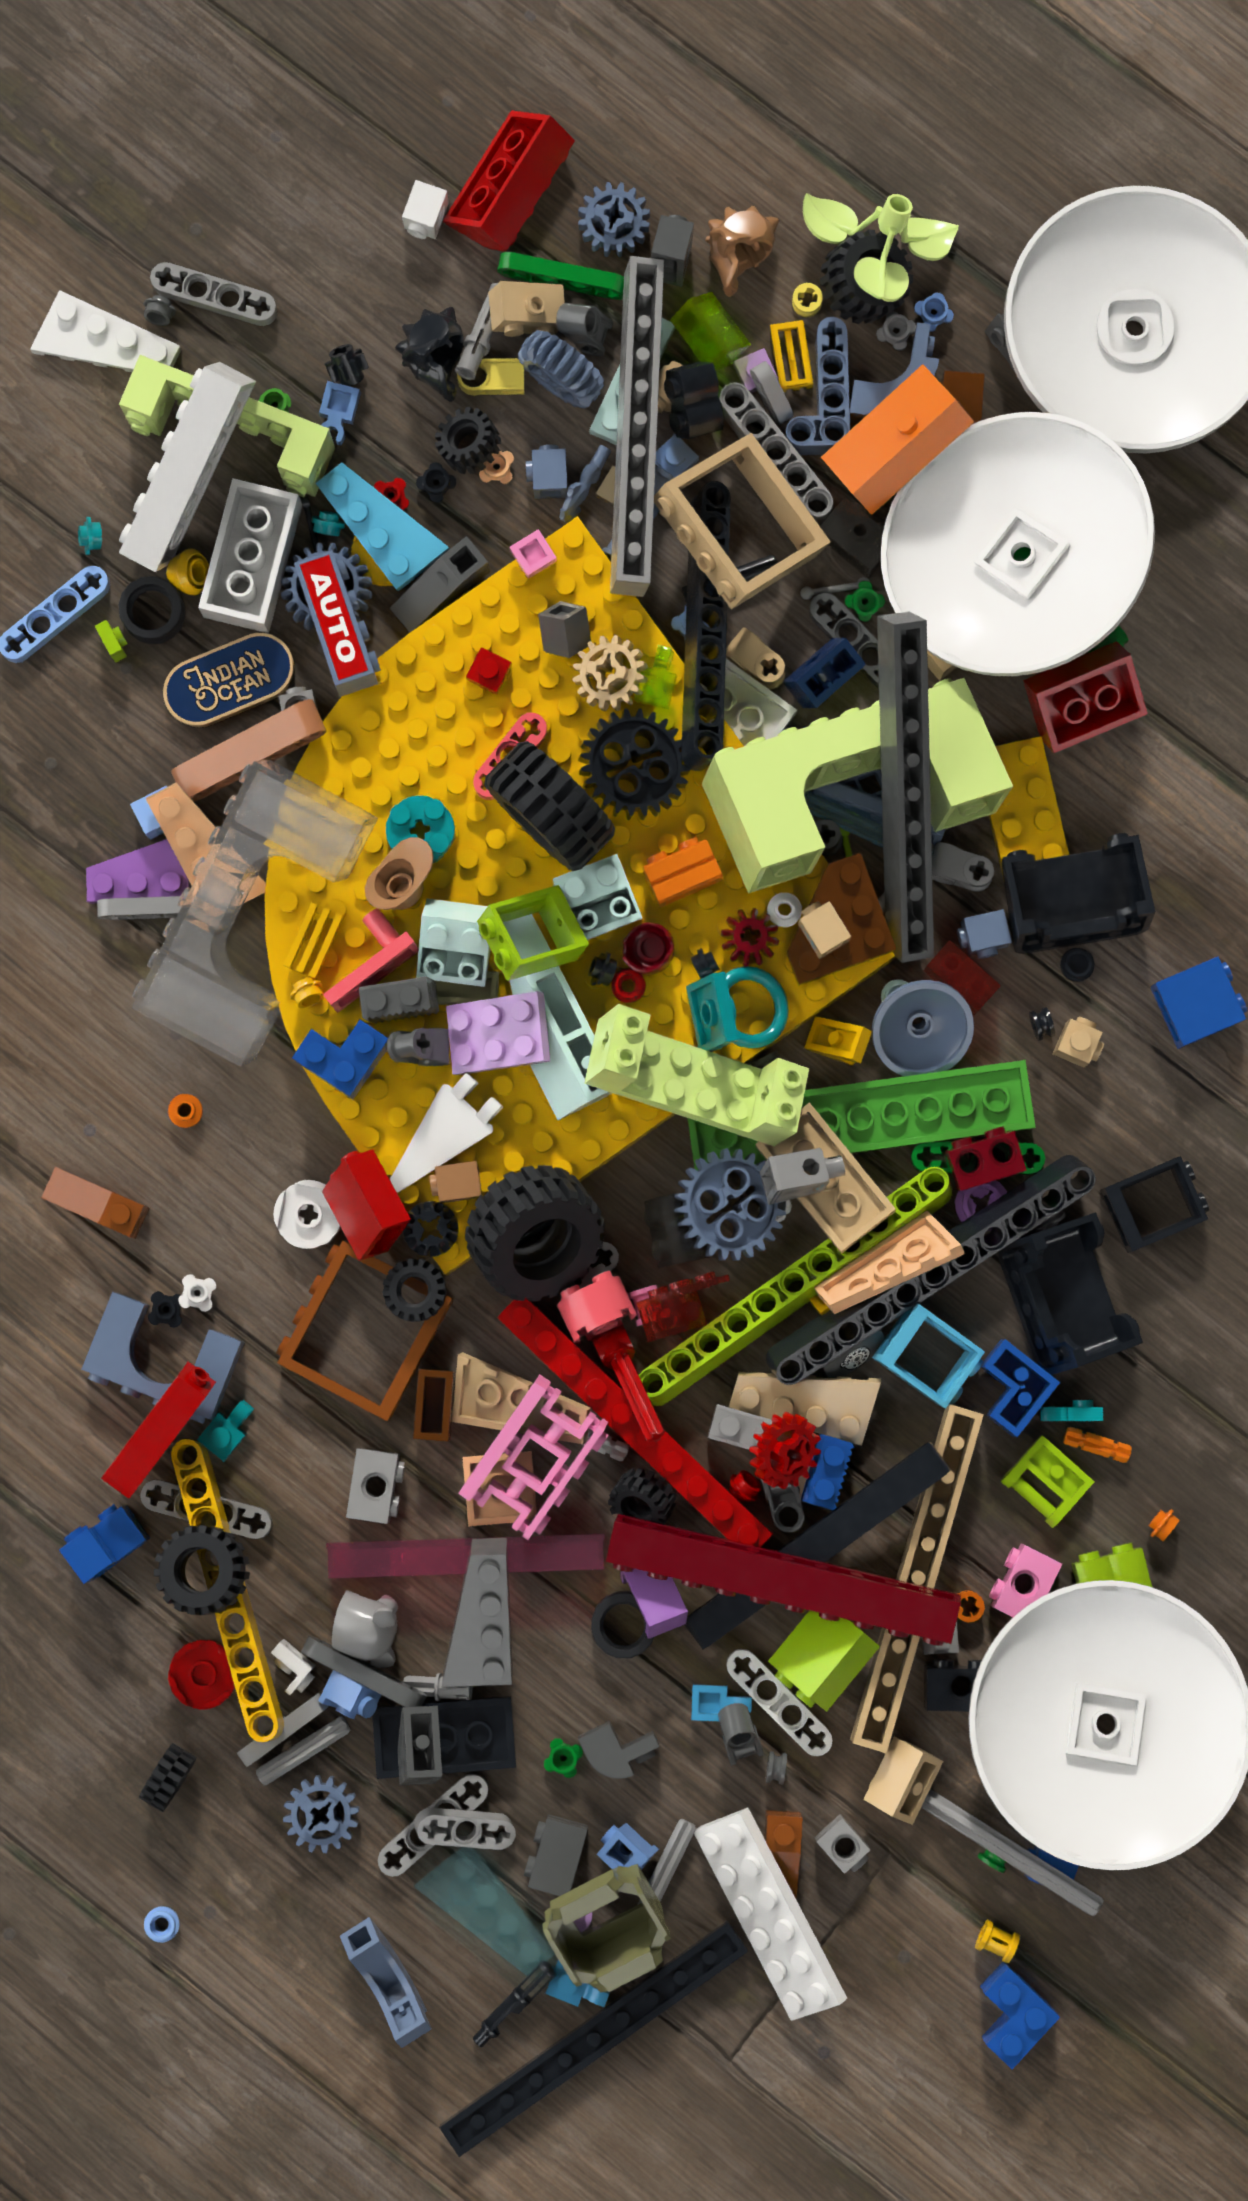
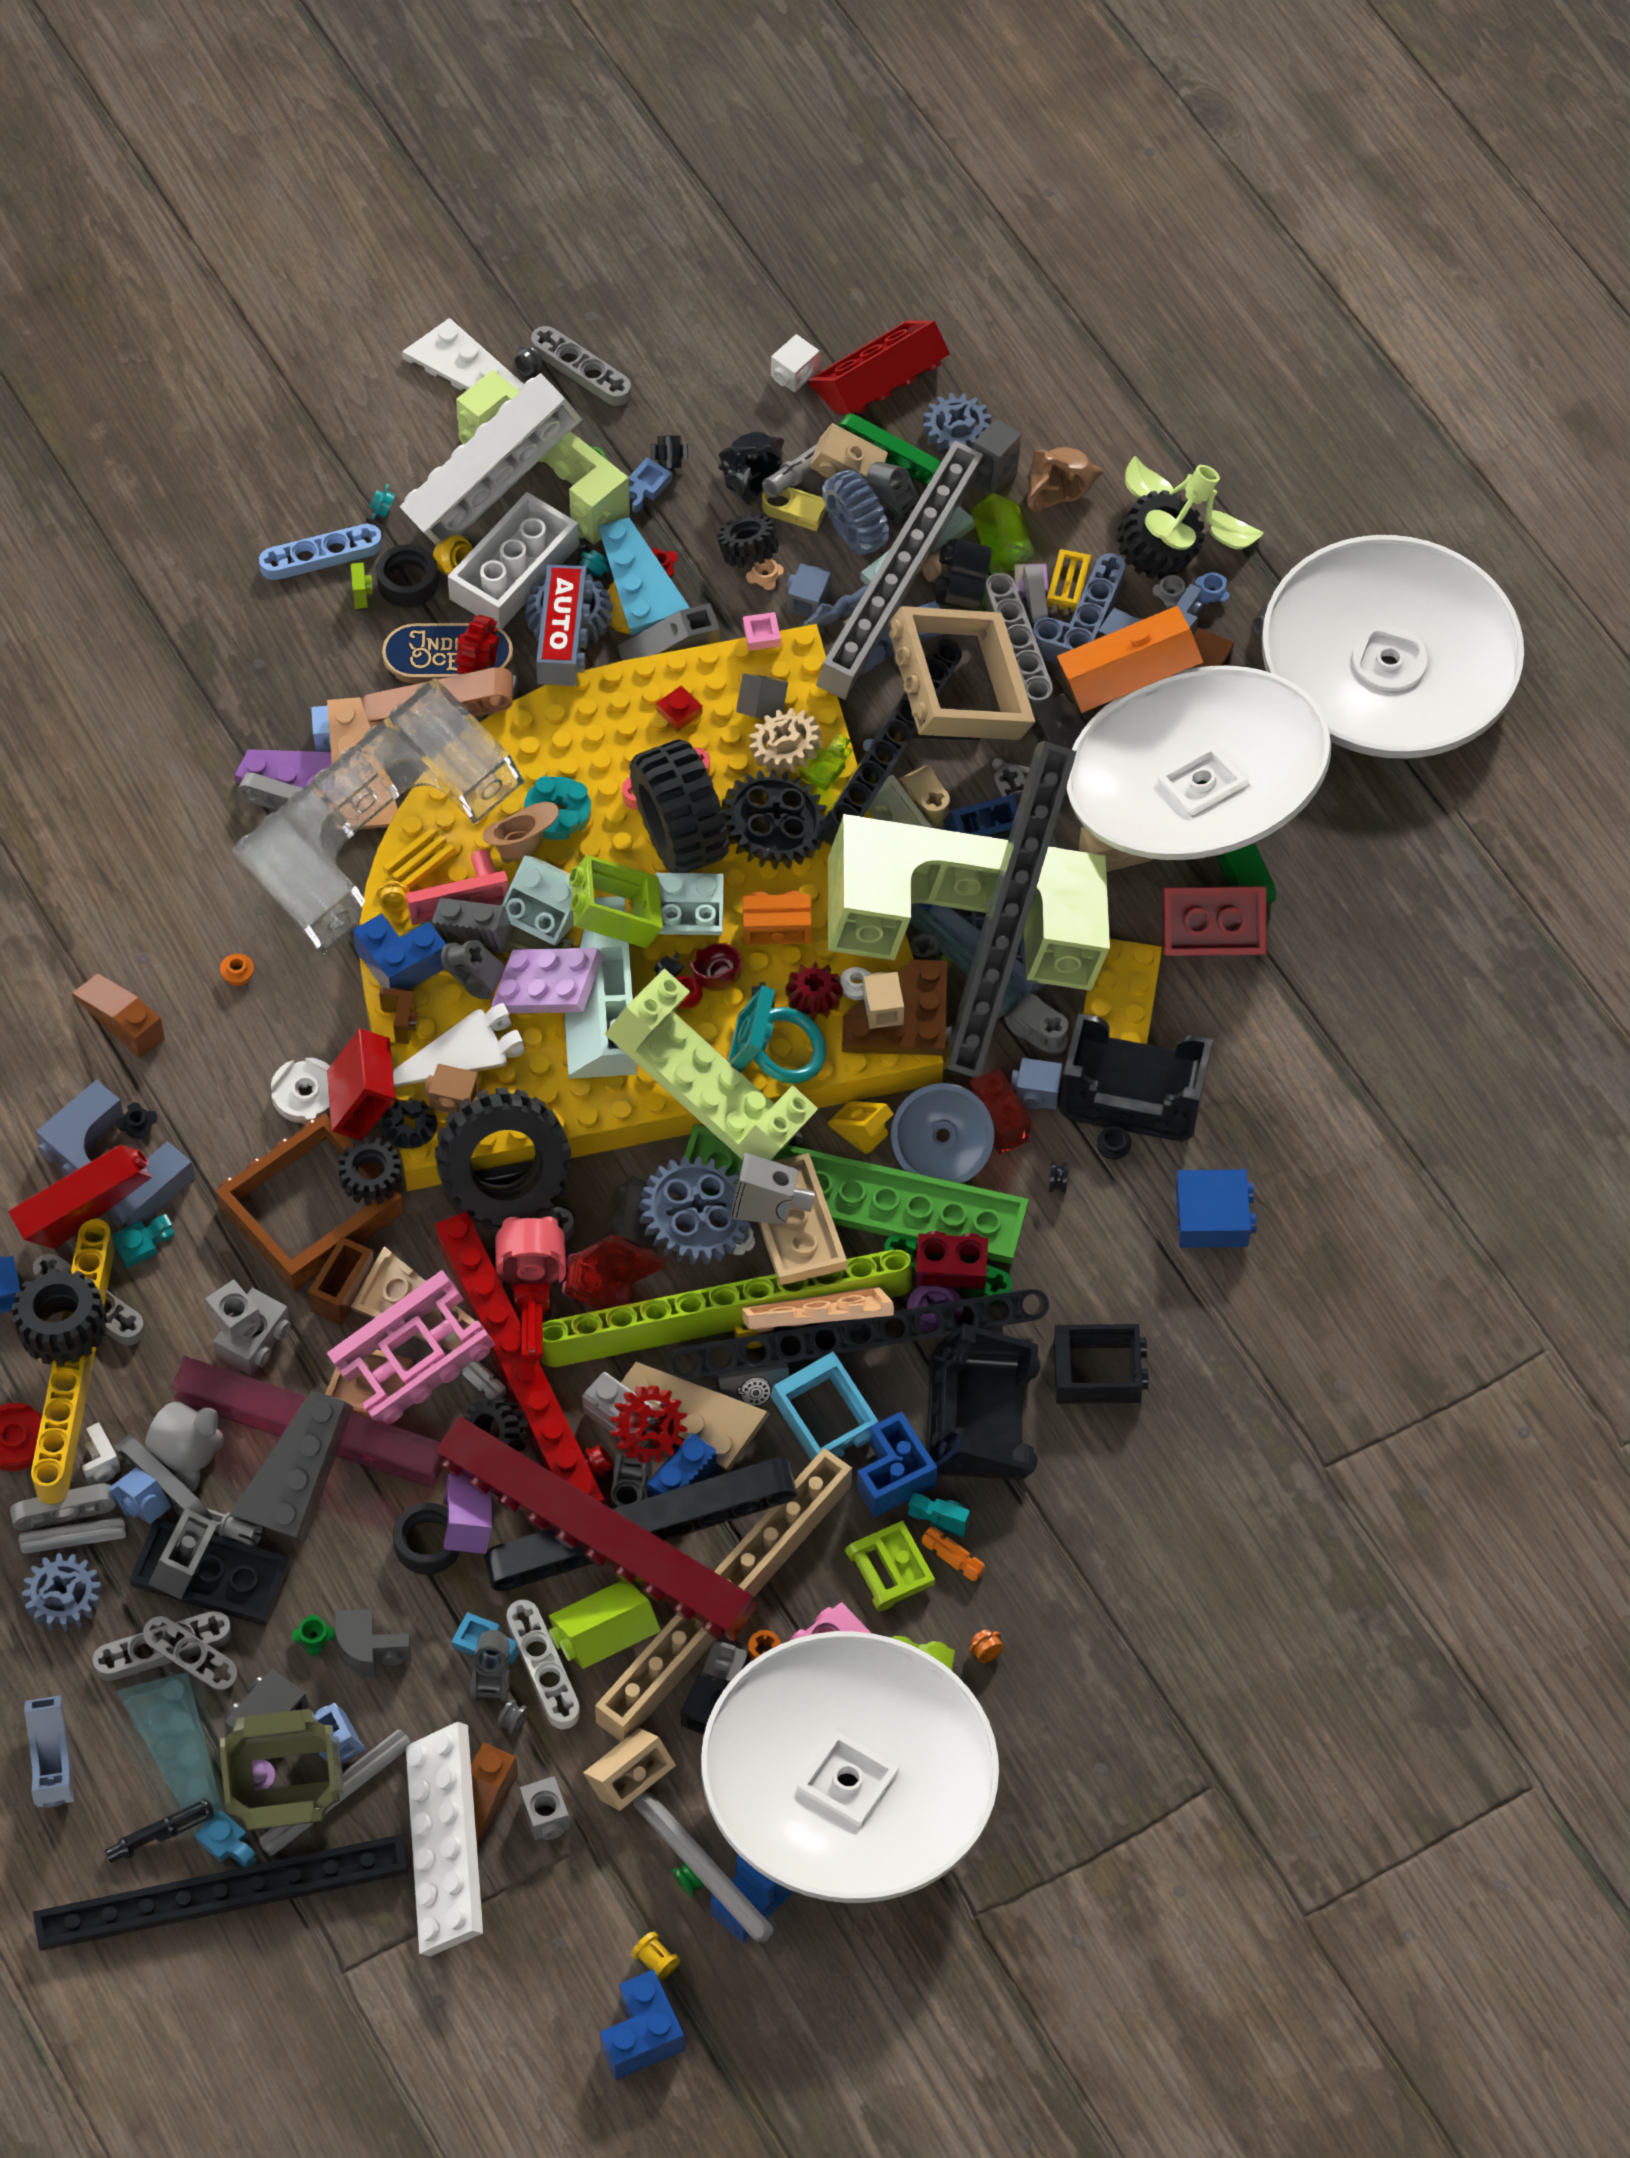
camera: 20 degrees right, 25 degrees down
(204, 1286) = (169, 1125): white plate -> none
(264, 681) = (477, 646): none -> red gear
(341, 1484) = (232, 1299): none -> light grey brick
(380, 1122) = (403, 1004): none -> reddish brown bracket
(436, 472) = (705, 559): black plate -> none
(800, 292) = (1099, 535): light yellow bush -> none
(1079, 1042) = (1084, 1202): tan brick -> none

